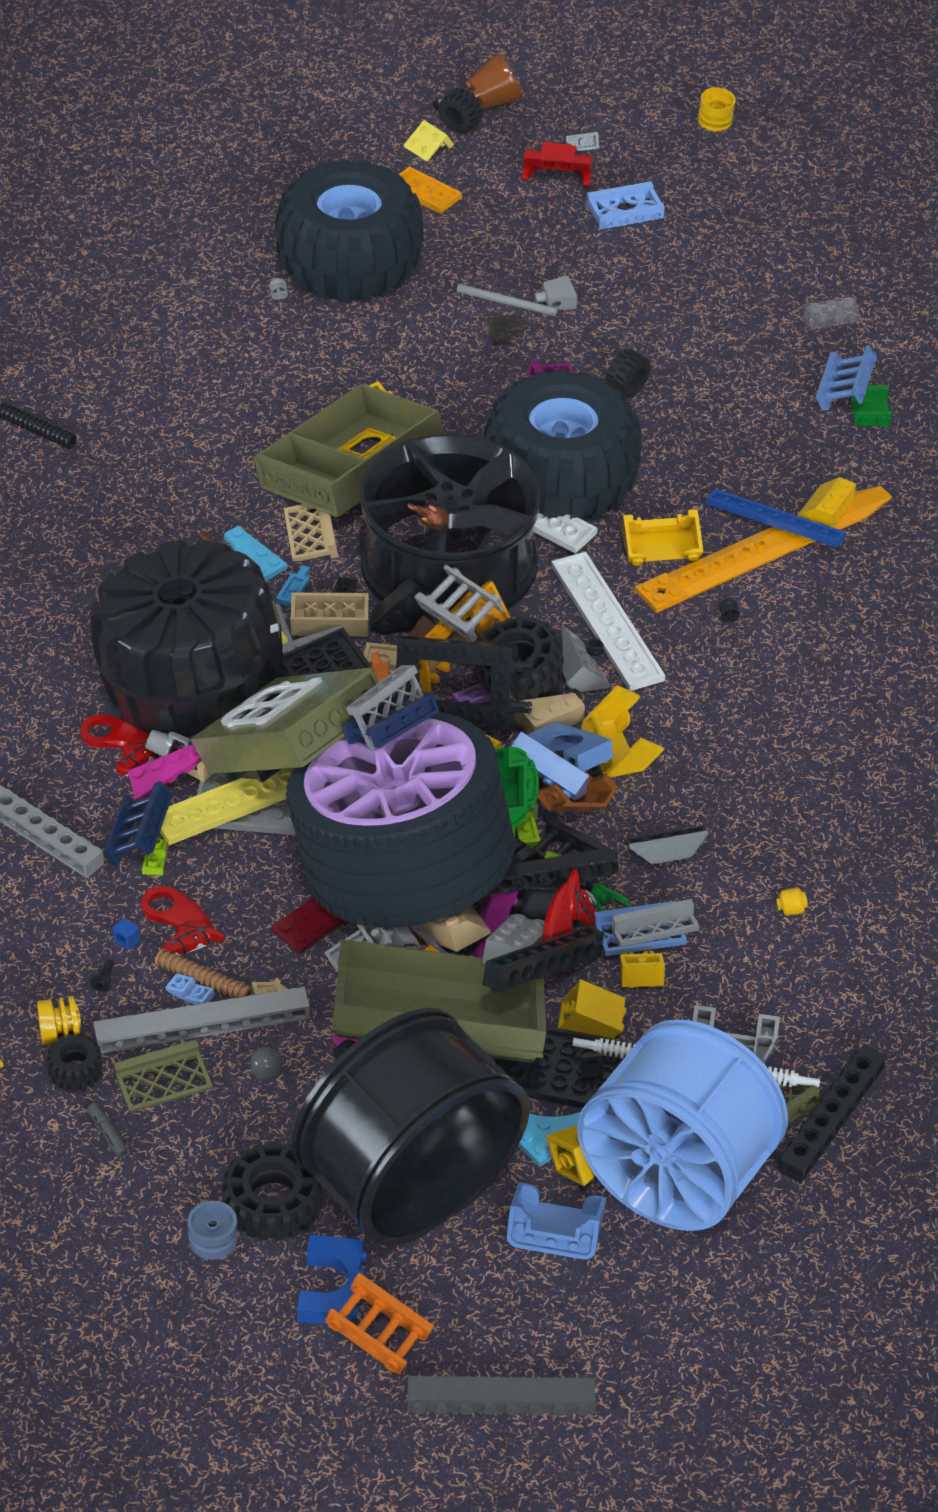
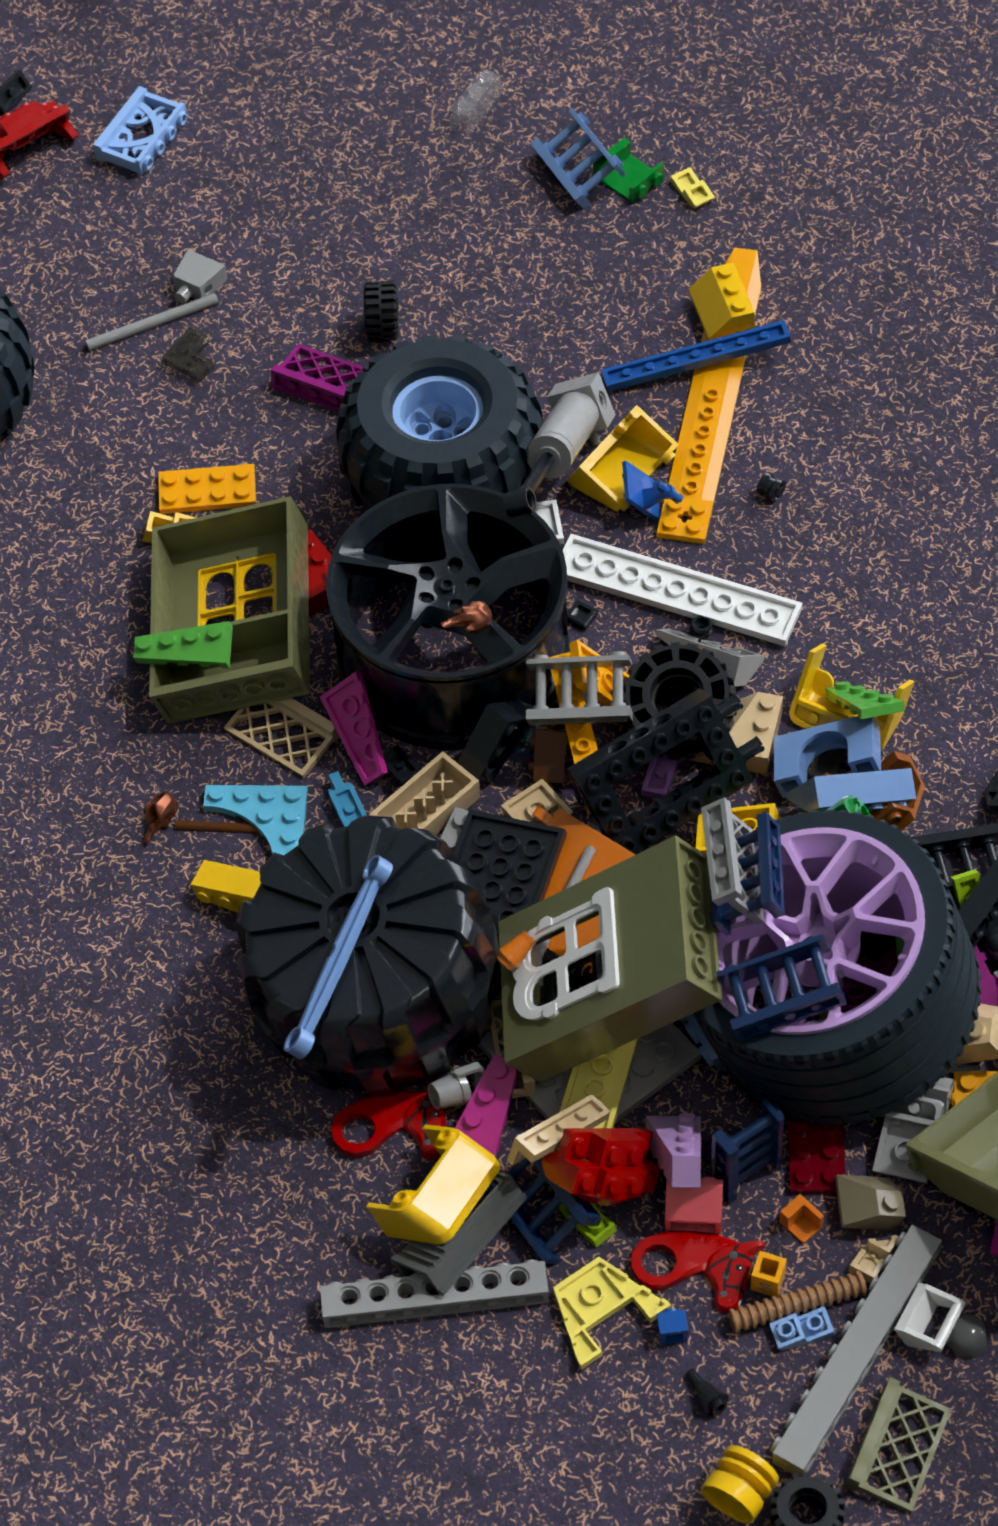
camera: 40 degrees left, 10 degrees up
(81, 804) = (448, 1263): none -> dark grey piece
(91, 774) = (445, 1195): none -> yellow windscreen
(105, 890) = (594, 1296): none -> light yellow wing
(140, 603) = (301, 1038): none -> medium blue piece
(175, 788) = (548, 1134): none -> tan fence
(183, 828) = (616, 1165): none -> red piece
(200, 520) = (159, 813): none -> copper piece
(203, 948) = (768, 1274): none -> light orange brick
(209, 889) = (695, 1207): none -> coral slope
(232, 854) = (677, 1148): none -> lavender wedge
(241, 884) = (748, 1150): none -> dark blue fence
(254, 687) = (515, 951): none -> orange cone
(255, 1034) = (919, 1313): none -> white tile
(257, 942) = (801, 1219): none -> orange panel
(299, 962) = (869, 1202): none -> dark tan slope
(300, 445) = (194, 645): none -> bright green wing
(336, 795) = (801, 1004): none -> dark blue fence
(340, 550) = (354, 722): none -> dark pink wing
(425, 392) = (207, 488): none -> light orange plate
(539, 595) = (581, 615): none -> black tile
(617, 733) = (863, 702): none -> bright green wing
(651, 558) = (645, 492): none -> blue plate
(654, 489) = (577, 413): none -> light grey piece
(898, 440) = (692, 189): none -> light yellow slope

